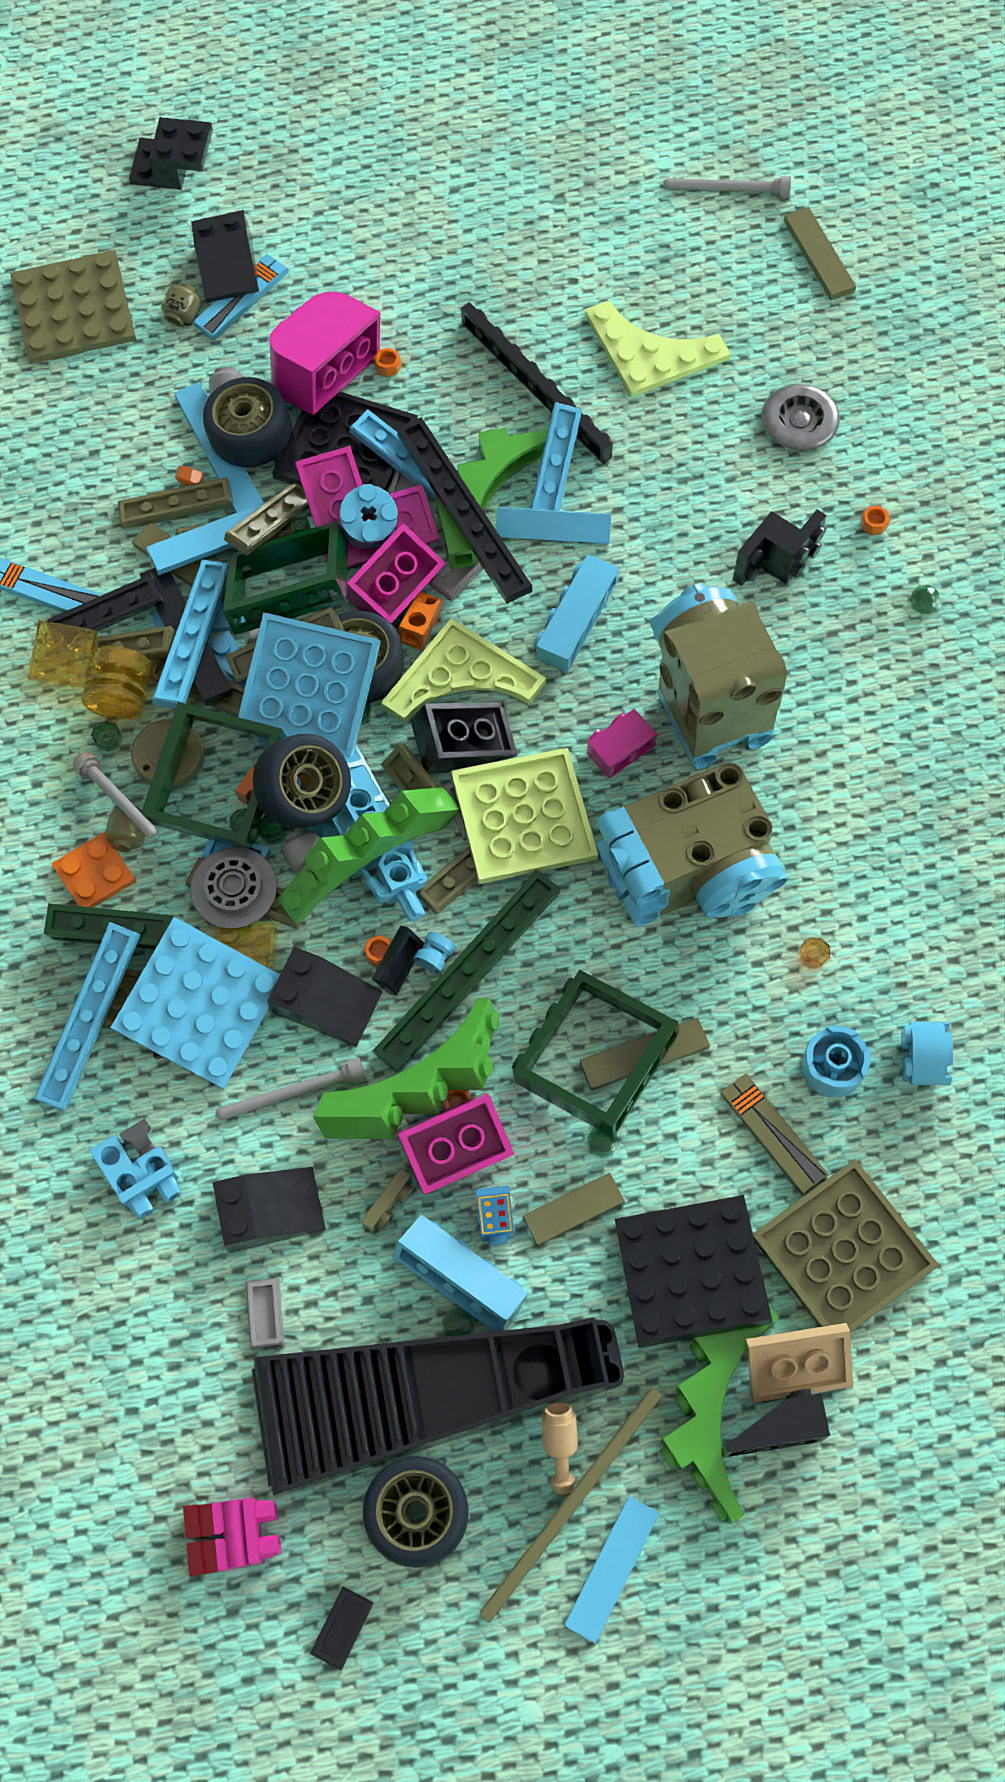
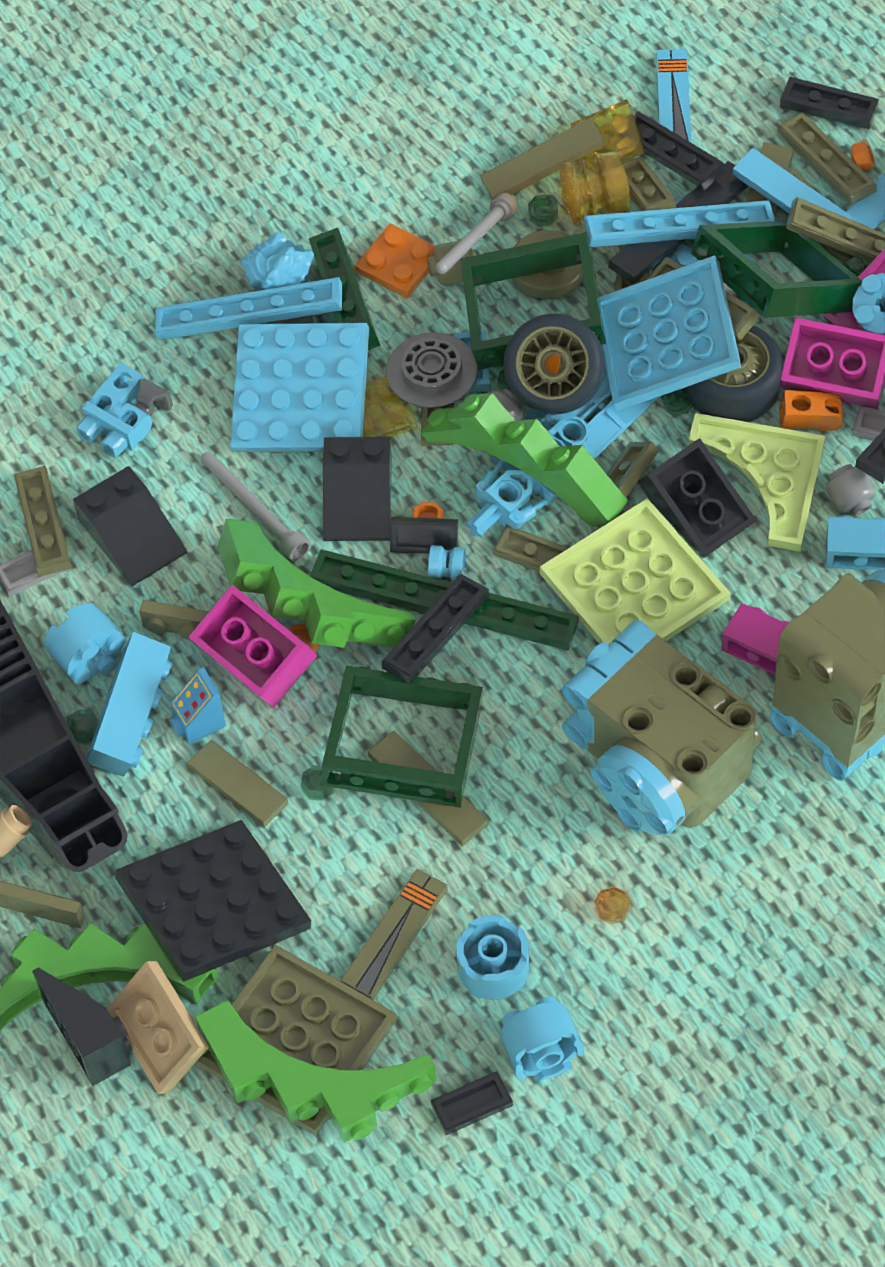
camera: 70 degrees right, 10 degrees down
(53, 972) = (277, 263): none -> medium azure hair
(57, 713) = (543, 159): none -> olive tile
(120, 478) = (829, 103): none -> black plate
(222, 1284) = (42, 521): none -> olive tile
(385, 1289) = (85, 643): none -> medium azure brick
(506, 985) = (435, 629): none -> black tile
(510, 621) = (851, 490): none -> light grey head
(930, 1226) = (303, 1088): none -> bright green arch
(950, 1131) = (471, 1103): none -> black tile

